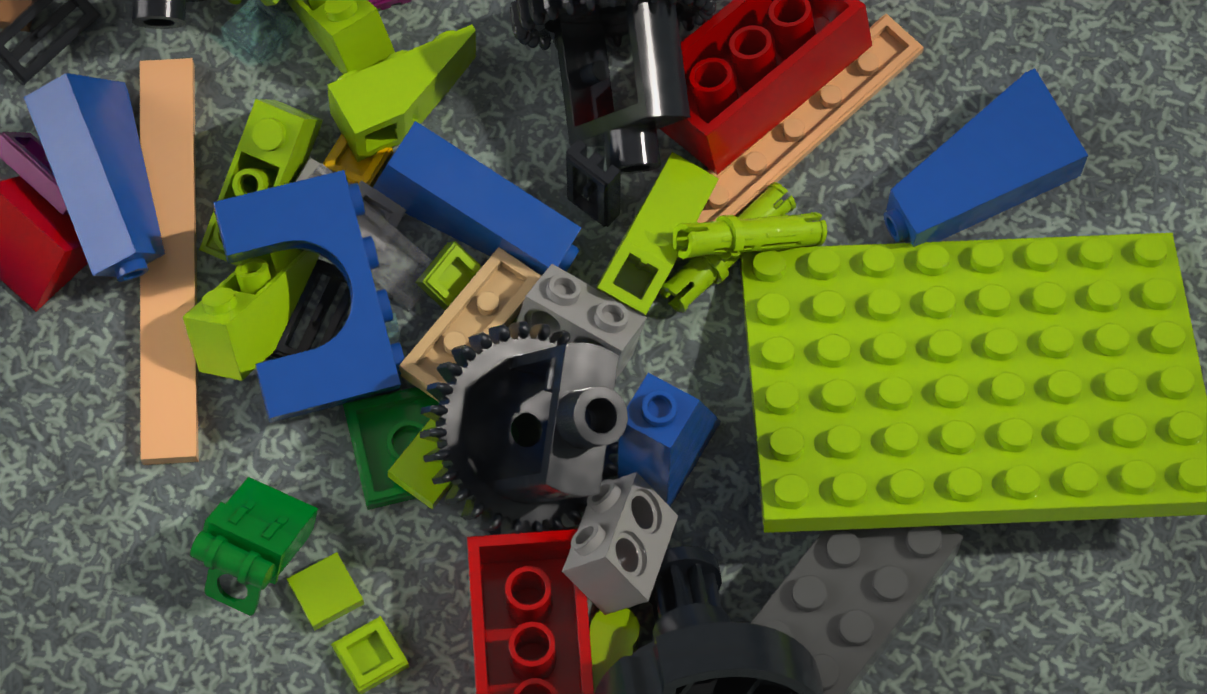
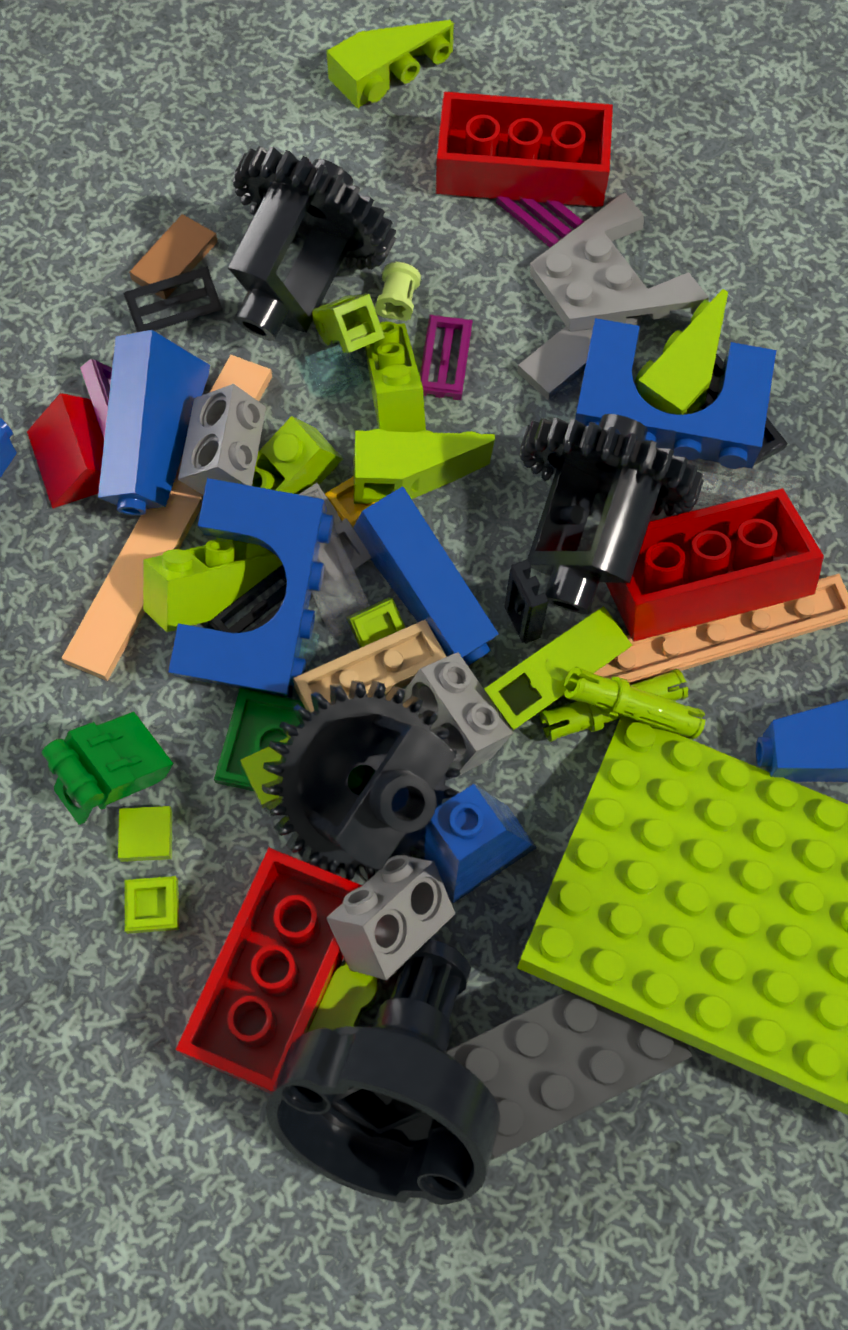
camera: 25 degrees right, 0 degrees up
(193, 157) = (222, 438): none -> light grey brick

